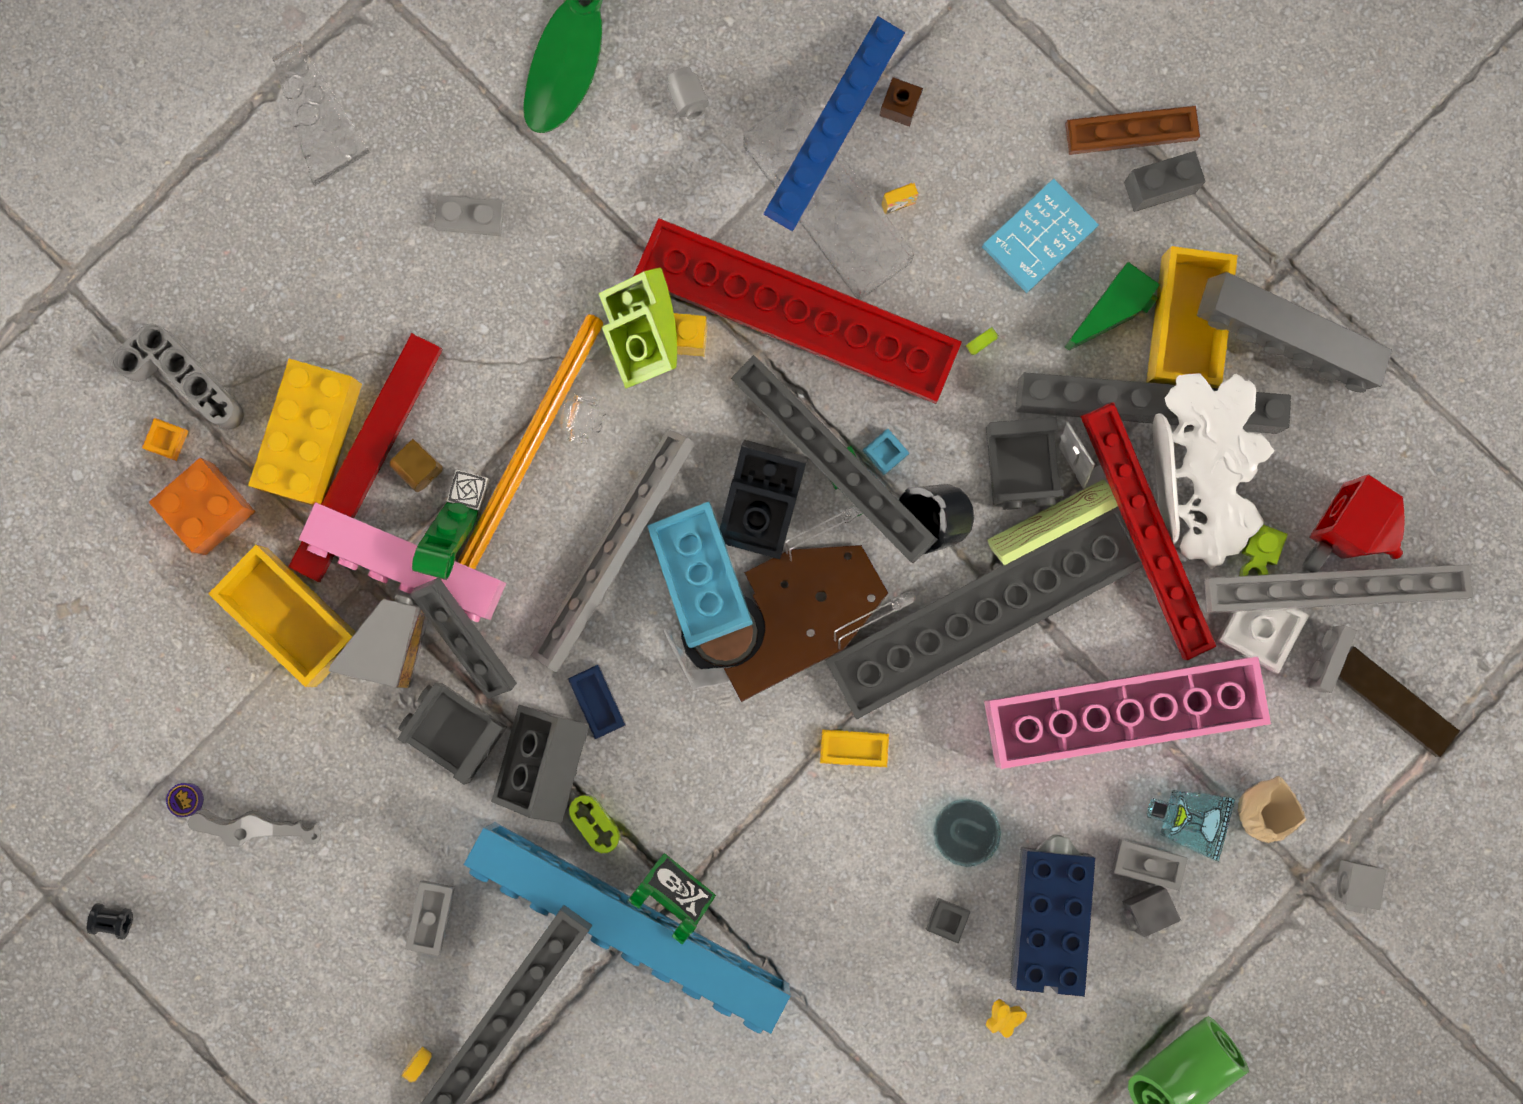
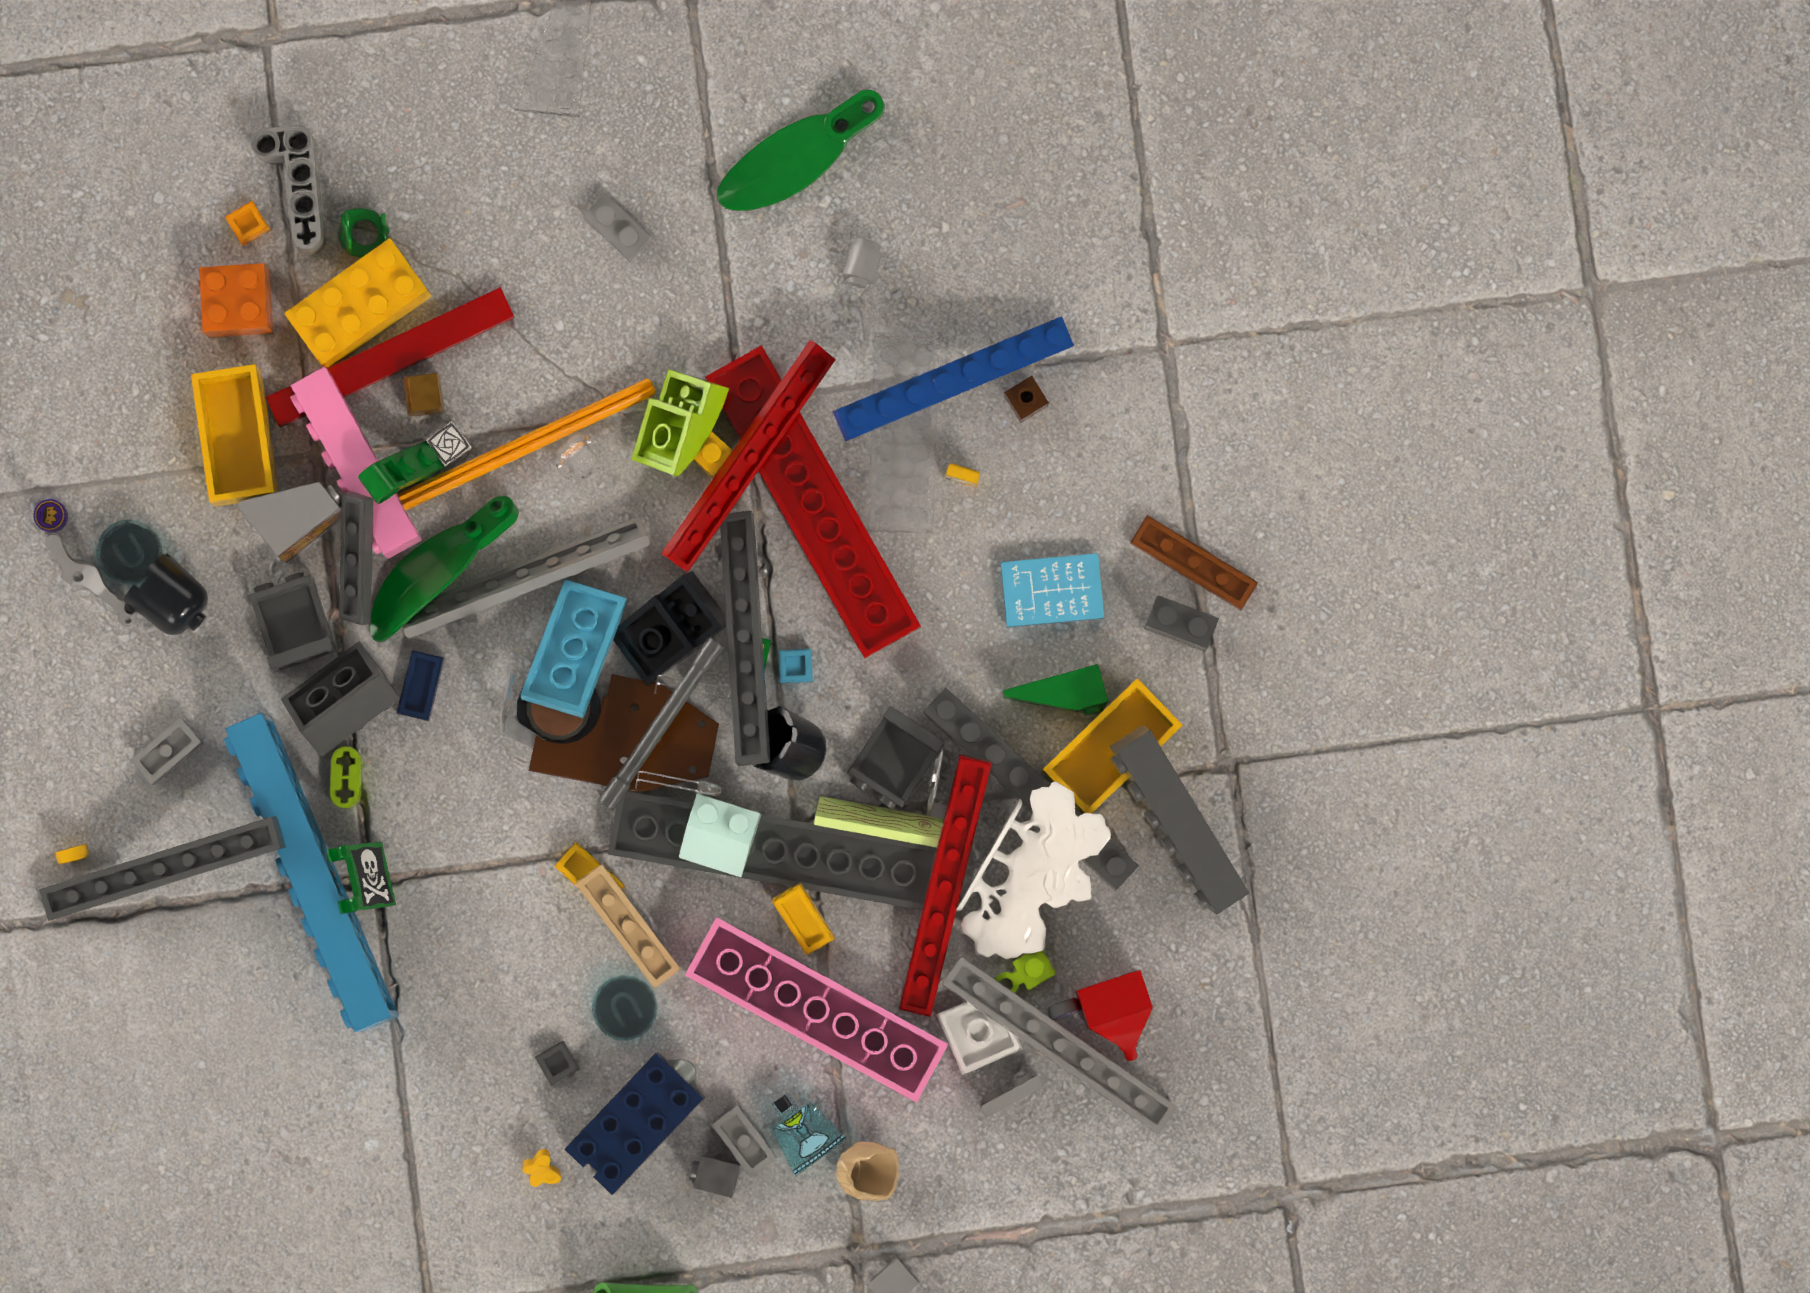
camera: 40 degrees right, 0 degrees up
(246, 369) = (351, 217): none -> green piece
(273, 778) = (127, 551): none -> clear light blue tile
(332, 790) = (169, 597): none -> black cylinder
(533, 595) = (436, 565): none -> green plant
(719, 311) = (748, 456): none -> red tile
(815, 505) = (621, 781): none -> dark grey piece
(919, 764) = (627, 926): none -> tan plate
(937, 632) = (719, 835): none -> light aqua slope
(982, 341) = (938, 638): lime tile -> none
(1054, 647) = (803, 918): none -> yellow tile
(1397, 703) = (1036, 1168): dark brown tile -> none

